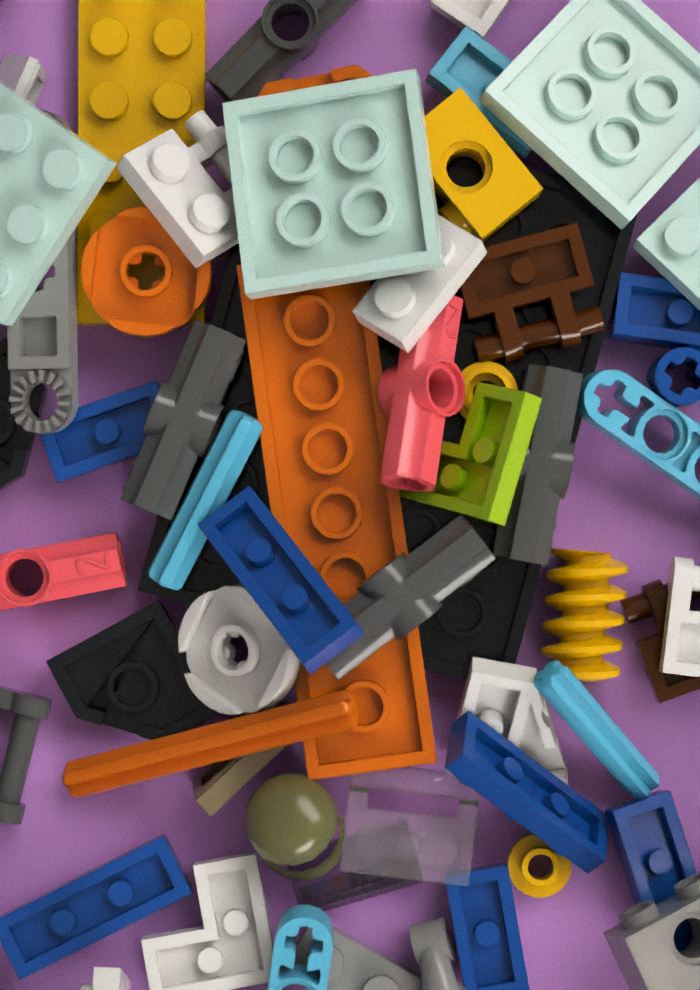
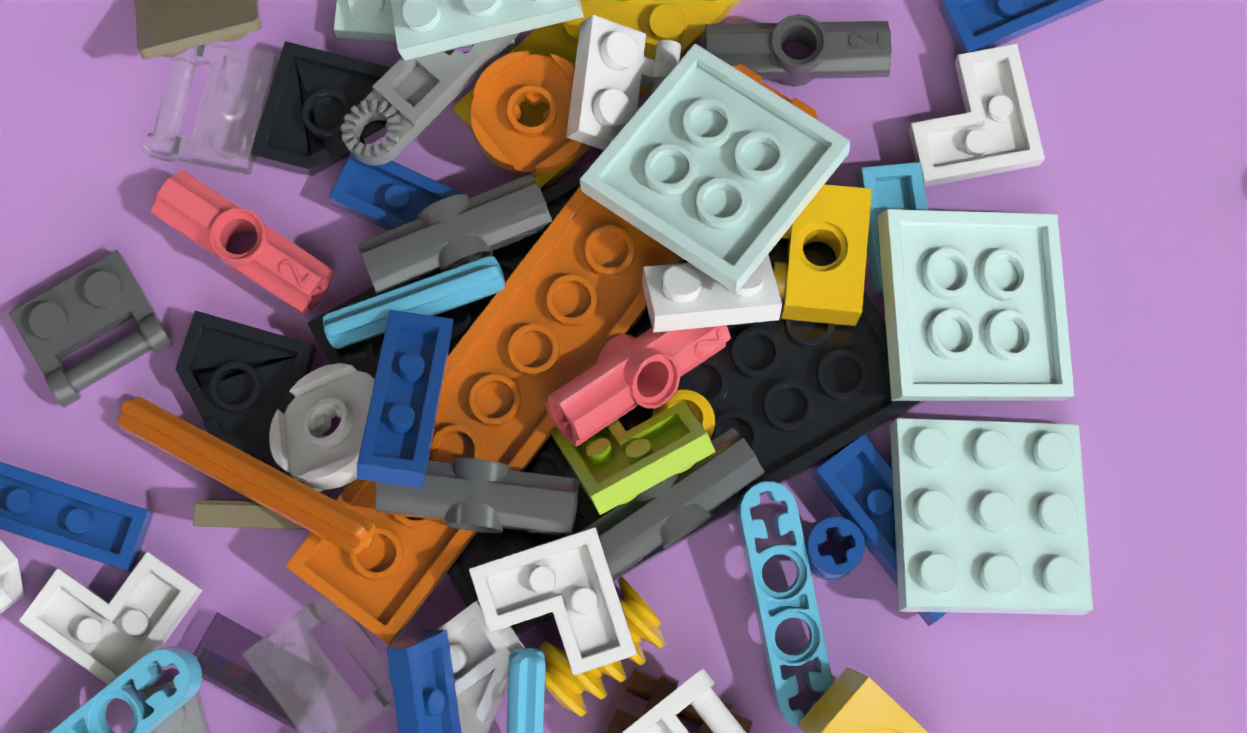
camera: 45 degrees right, 10 degrees down
(292, 823) = (244, 585): olive helmet -> none
(524, 273) = (794, 365): reddish brown plate -> none
(528, 593) = (564, 579): none -> white plate

